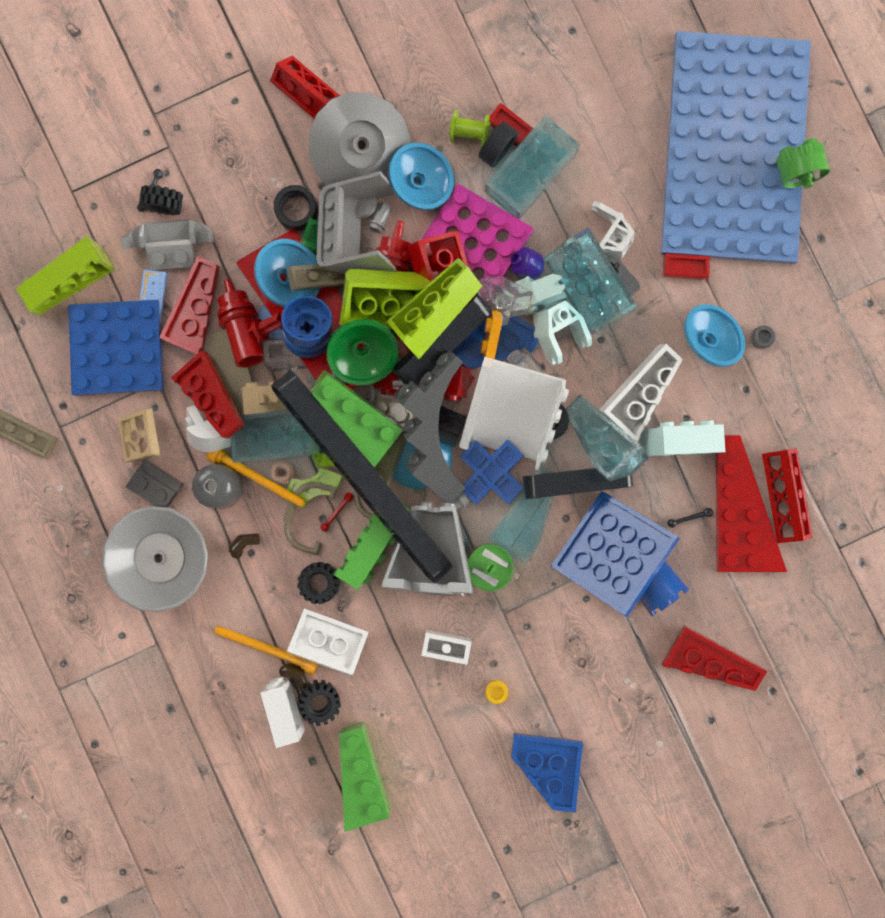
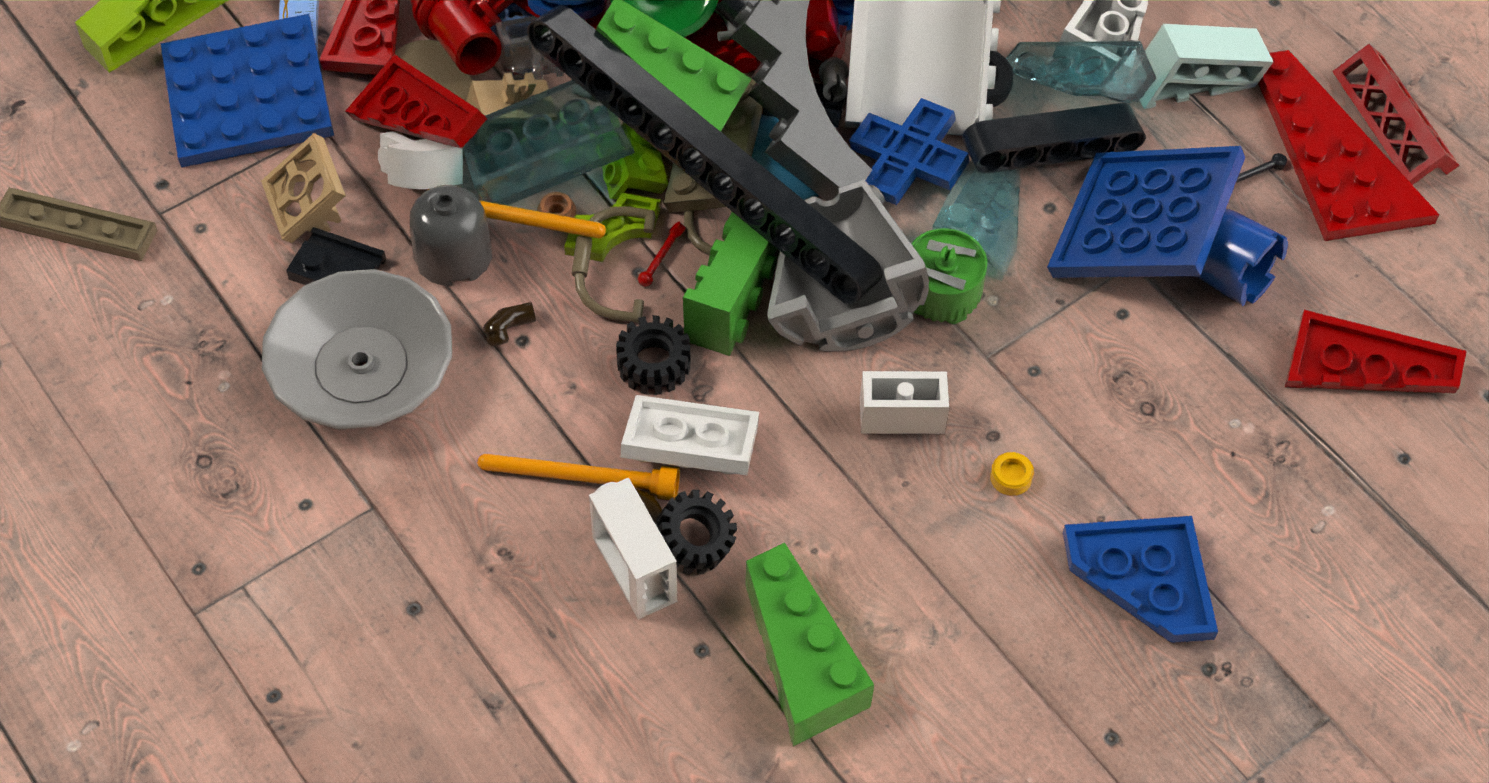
camera: 15 degrees left, 30 degrees down
(459, 409) = (833, 74): none -> light grey pin

